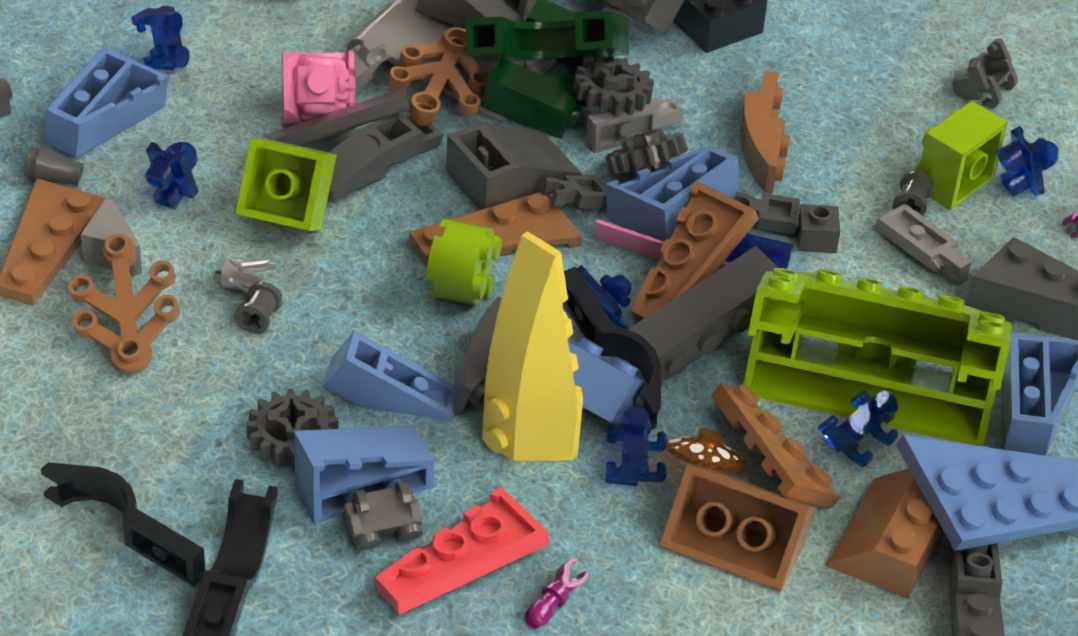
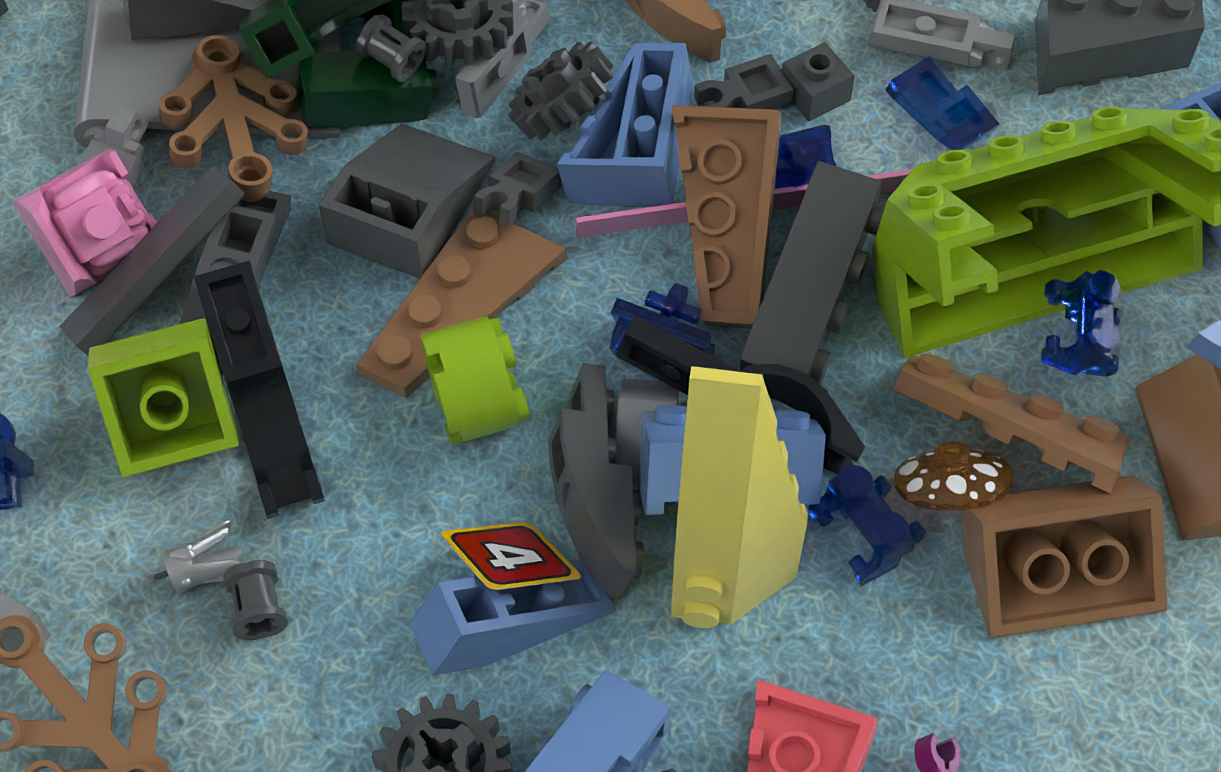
camera: 30 degrees left, 15 degrees up
(343, 208) = (258, 387): none -> black piece
(412, 354) = (510, 555): none -> sticker
(556, 78) = (390, 47): none -> dark grey bush
(888, 267) = (947, 114): none -> clear blue slope

